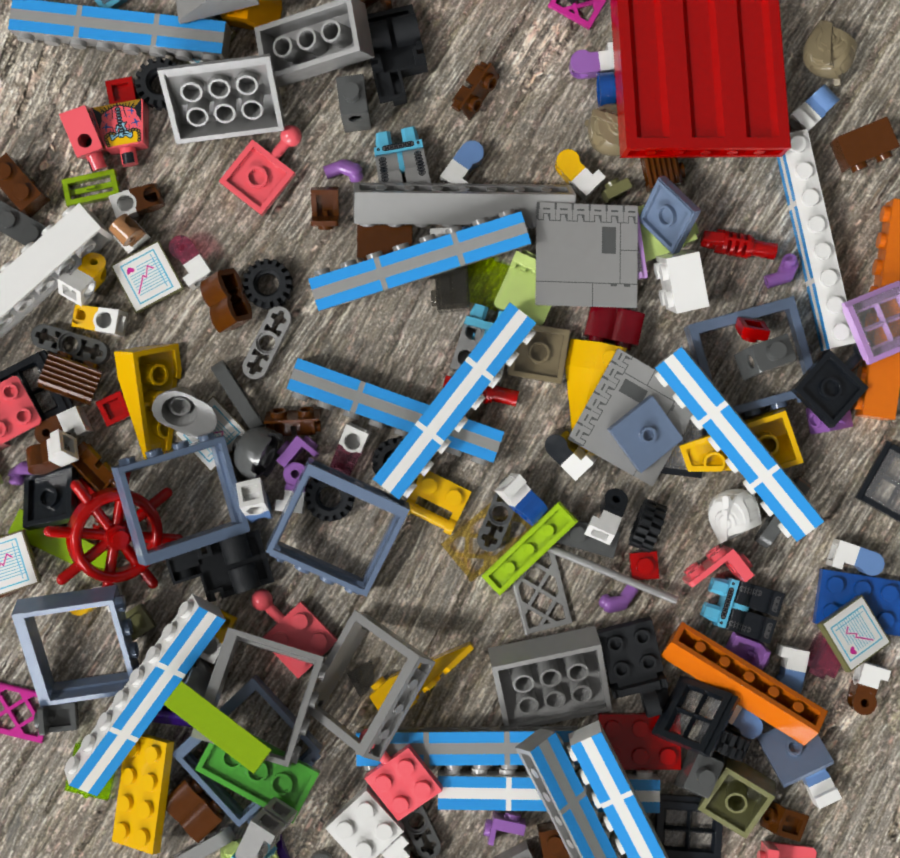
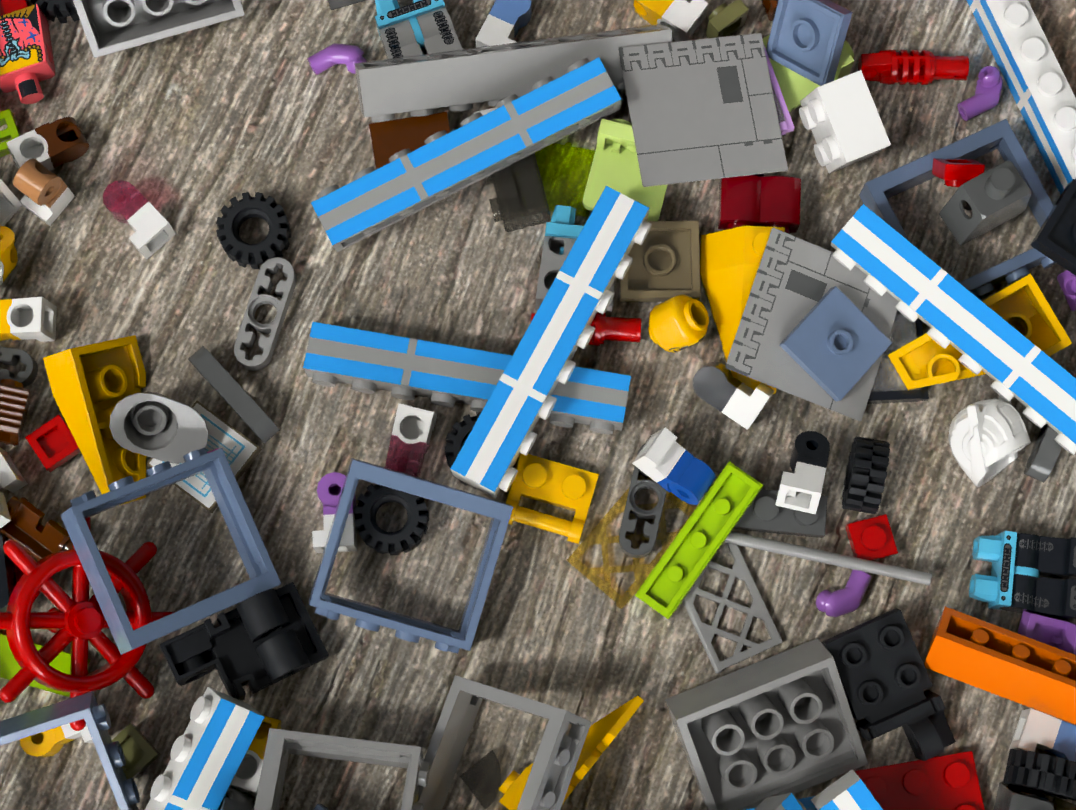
camera: 15 degrees left, 10 degrees down
(147, 277) = (78, 251): white tile -> none
(226, 300) = (196, 260): reddish brown brick -> none
(254, 500) = (280, 536): white leg -> none
(256, 452) = (274, 468): dark grey cylinder -> none
(260, 175) = (218, 83): coral plate -> none
(290, 451) = (324, 459): medium lavender bracket -> none
(296, 629) = (372, 717): coral plate -> none
(305, 419) = (304, 419): reddish brown hinge -> none
(325, 207) = (319, 110): reddish brown bracket -> none
(543, 399) = (678, 323): none -> yellow head
(695, 716) = (995, 742): black piece -> none
(735, 562) = (1003, 506): coral bracket -> none

